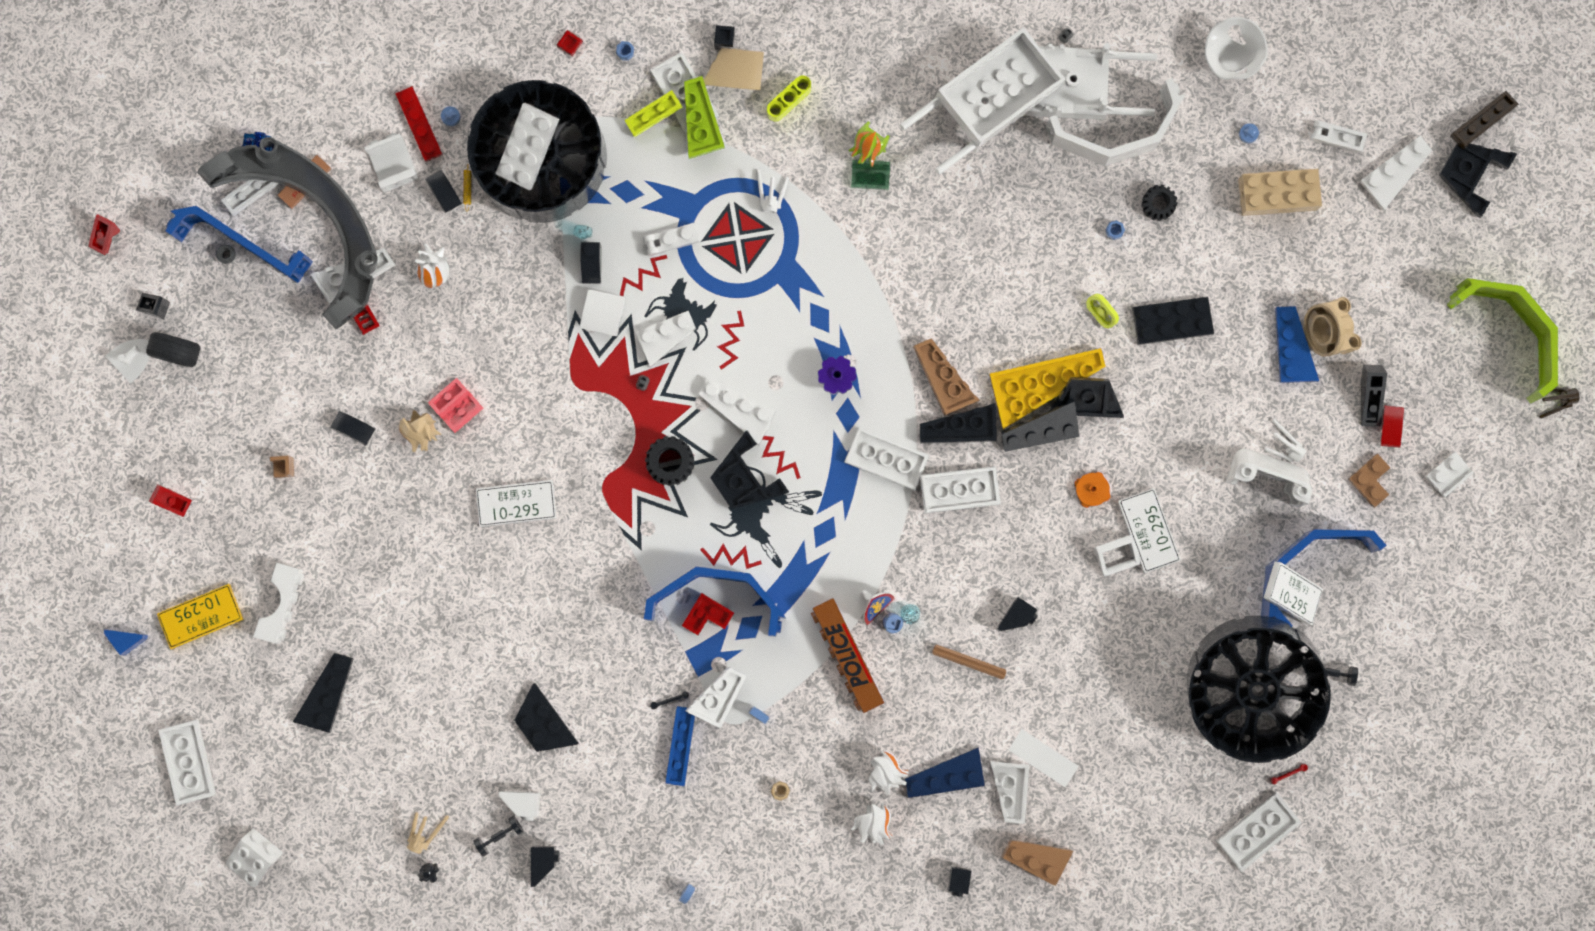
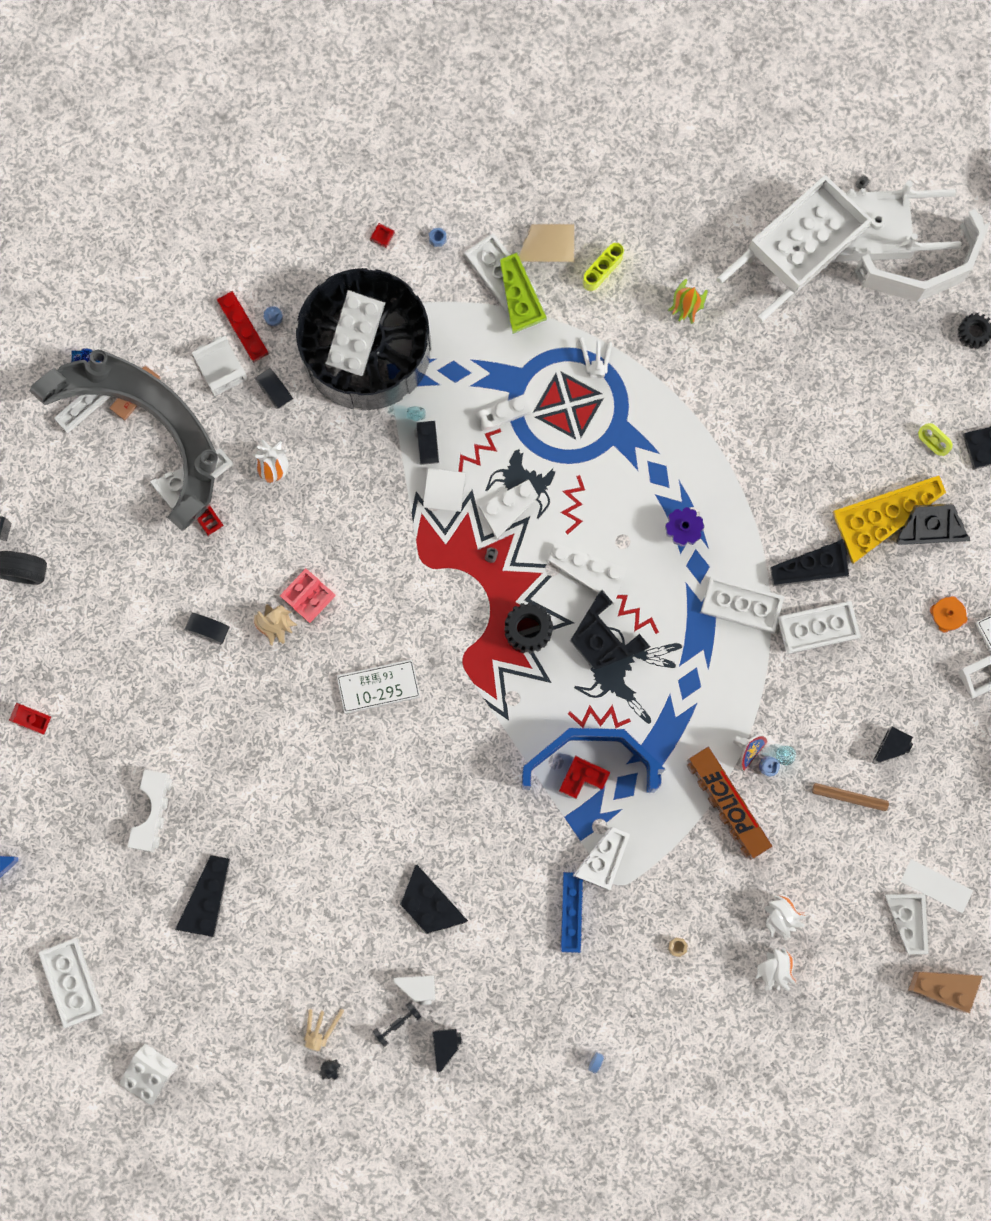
camera: 10 degrees left, 5 degrees down
(187, 217) = (25, 435): blue panel -> none
(200, 616) = (70, 833): yellow tile -> none
(220, 254) = (61, 465): dark grey plate -> none
(283, 466) = (140, 673): medium nougat panel -> none
(467, 185) = (296, 383): yellow piece -> none
(653, 113) = (472, 293): neon yellow plate -> none
(654, 705) = (539, 874): black hinge -> none
(724, 36) = (533, 213): black panel -> none
(759, 714) = (646, 871): medium blue tile -> none
(870, 177) = (691, 334): clear green plate -> none
(944, 380) = (792, 526): medium nougat wing -> none
(951, 775) = (847, 913): dark blue wing -> none
(959, 881) = (870, 1019): black brick -> none
(1046, 428) = (893, 559): black wing -> none
(1115, 230) = (936, 361): medium blue tile -> none

